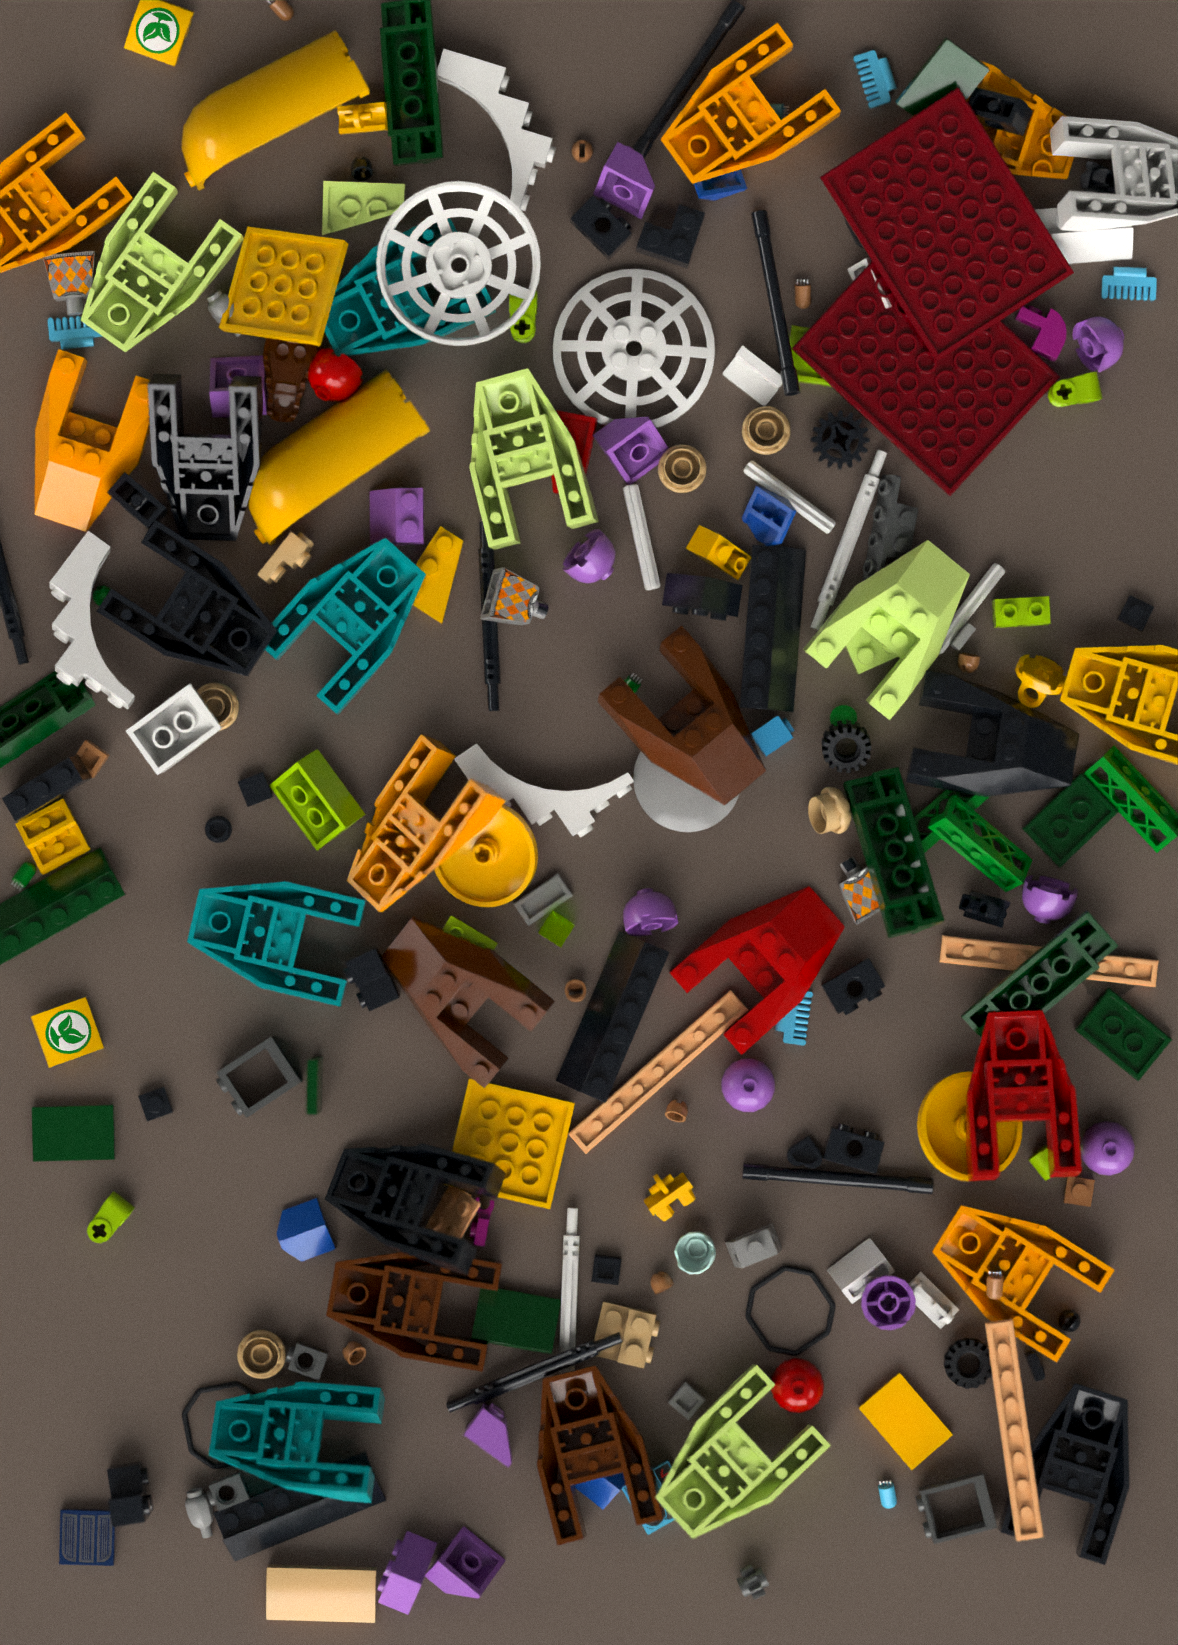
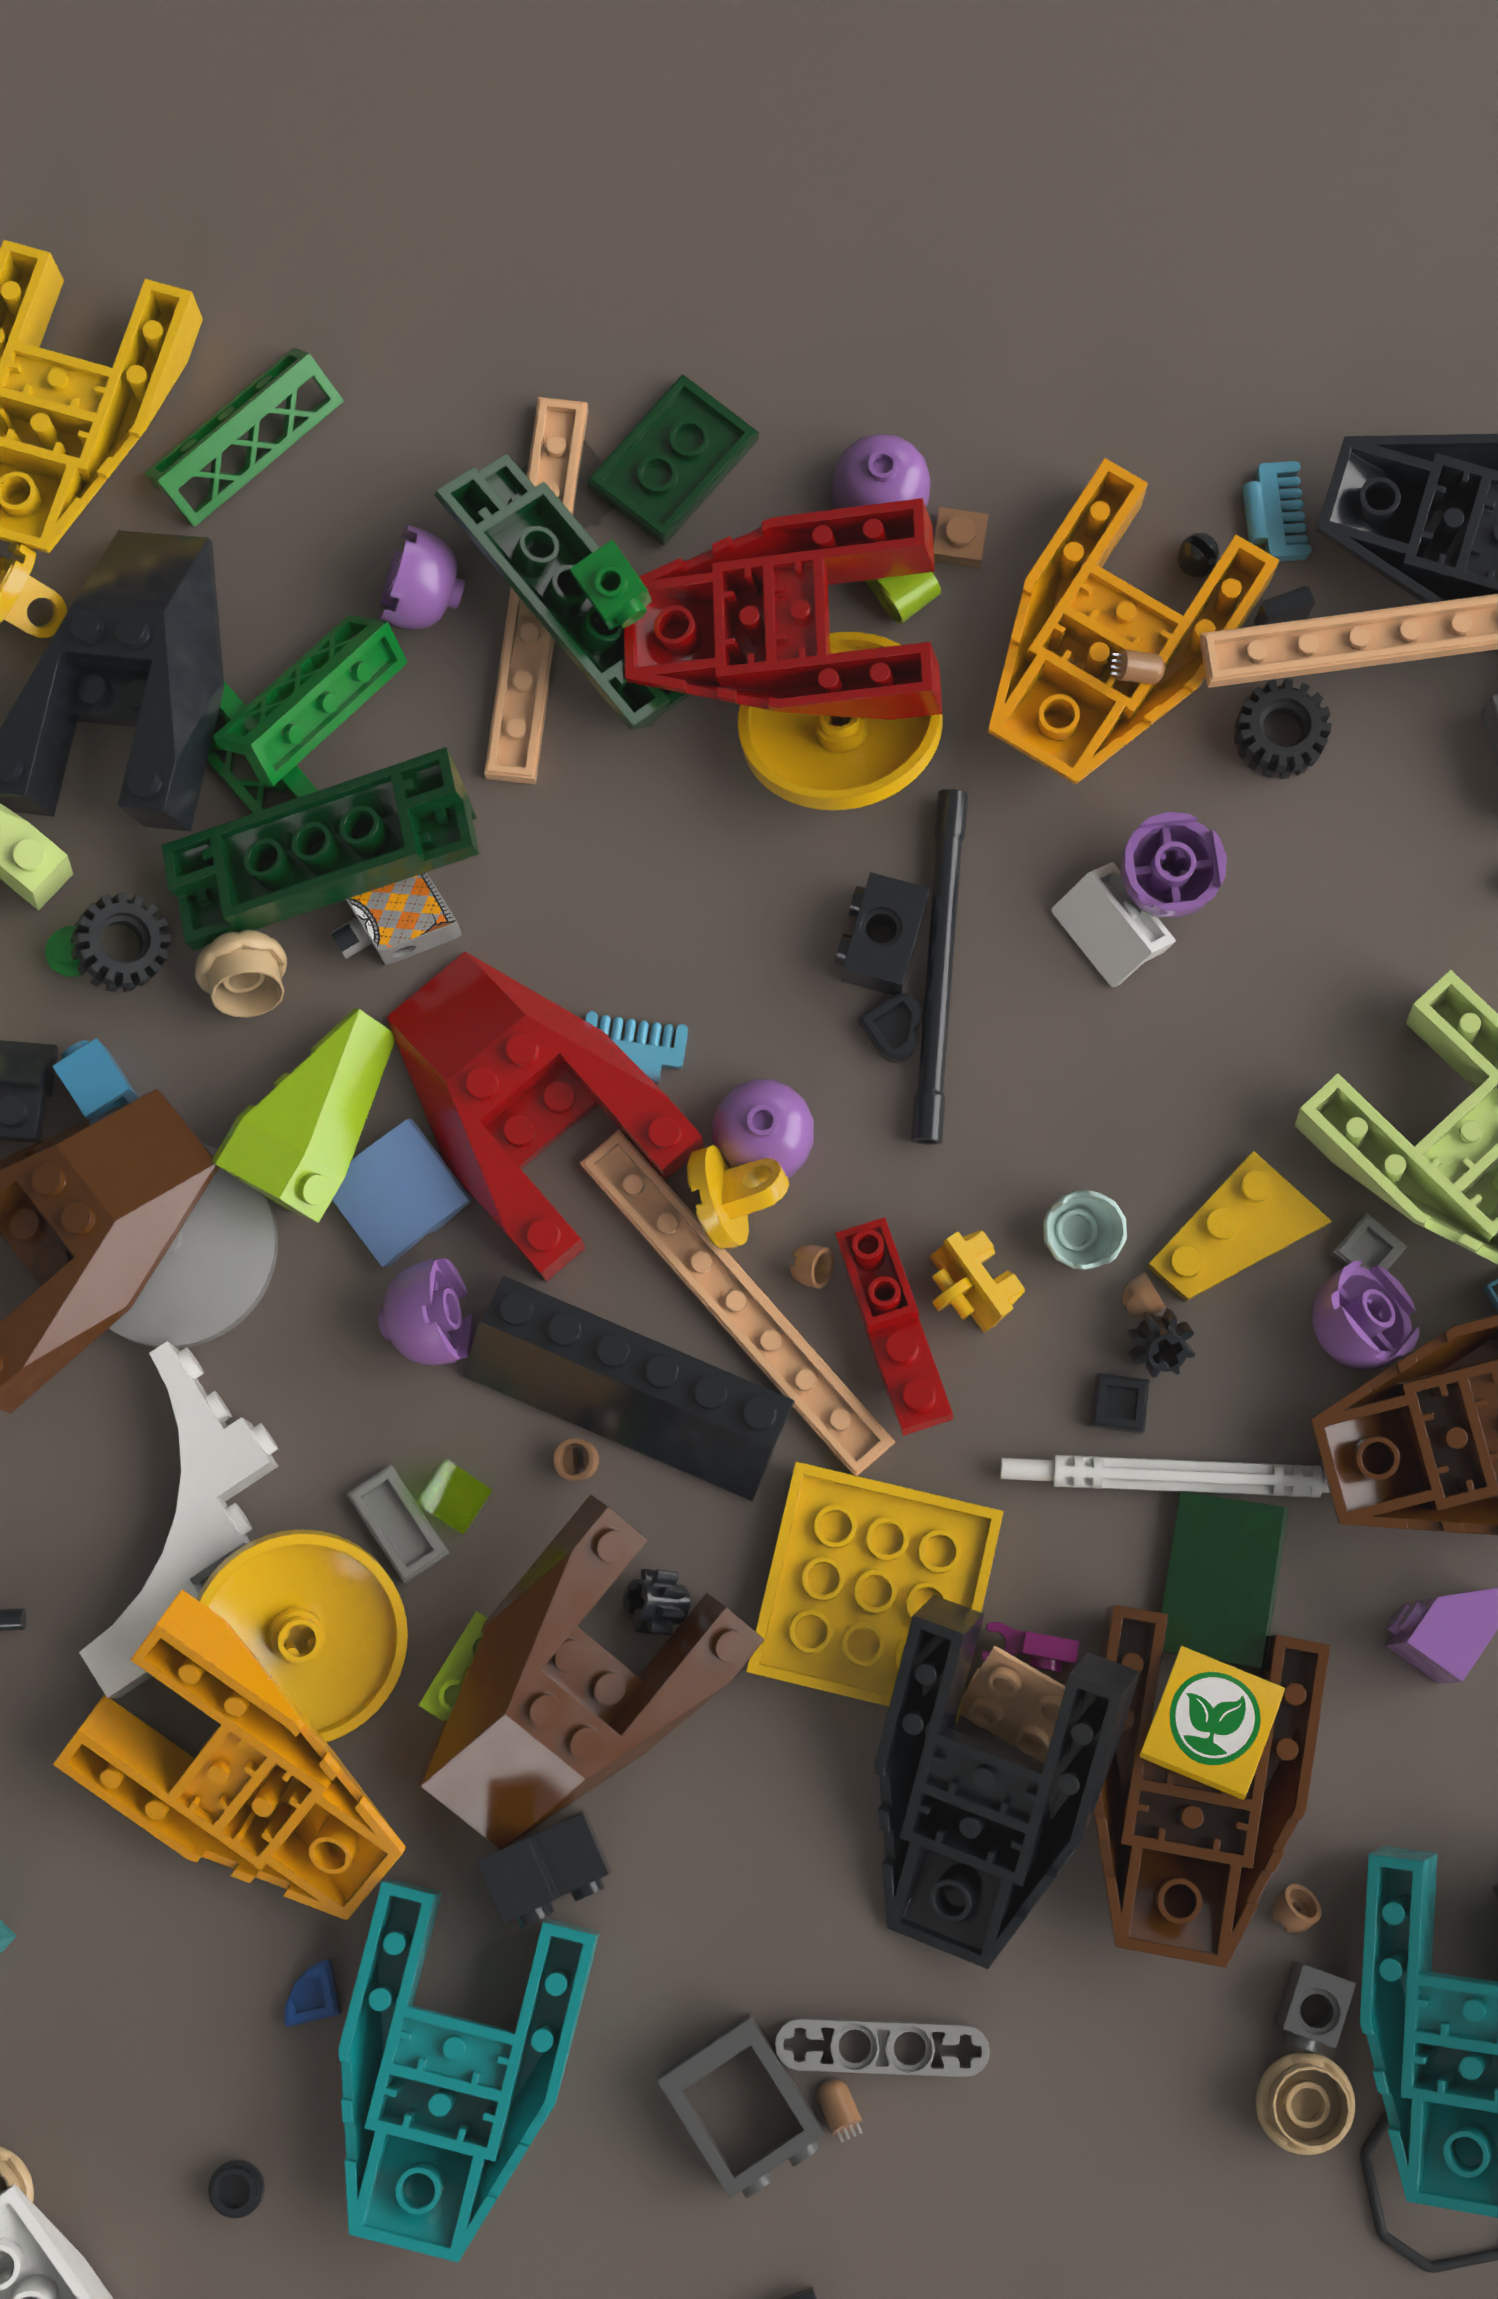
camera: 85 degrees left, 10 degrees down
(255, 789) = (158, 2109): black tile -> none
(257, 1125) = (839, 2108): none -> medium nougat piece
(291, 1146) = (881, 2054): none -> light grey beam
(304, 1231) = (1053, 2010): blue slope -> none
(309, 863) = (313, 1996): none -> blue tile
(314, 1086) = (756, 1990): dark green tile -> none
(317, 799) = (181, 1981): lime slope -> none
(443, 1311) = (1212, 1722): none -> slope
(503, 1032) = (656, 1601): none -> black gear
(535, 1372) = (1325, 1543): black axle -> none
(636, 1291) = (1168, 1356): none -> black gear
(636, 1328) = (1246, 1366): tan plate -> none
(644, 1153) = (893, 1326): none -> red slope
(649, 1395) = (1364, 1317): none -> medium lavender cylinder
(699, 1333) = (1237, 1226): none -> yellow wing
(710, 1069) = (732, 1193): none -> yellow tile
(714, 894) = (399, 1193): none -> medium blue slope
(746, 850) = (309, 1125): none -> lime wedge
(754, 1246) = (1072, 1120): light grey torso -> none
(759, 1333) = (1249, 1015): black piece -> none
(797, 1385) = (1333, 1036): red cylinder -> none
(837, 987) = (582, 963): black brick -> none
(905, 1421) = (1393, 845): yellow tile -> none
(932, 1301) = (1172, 789): white hinge -> none
(984, 908) = (434, 691): black hips -> none
(1034, 1006) = (612, 586): none -> green brick
(1070, 820) = (280, 550): dark green tile -> none
(1096, 1358) = (1265, 510): none -> medium azure piece

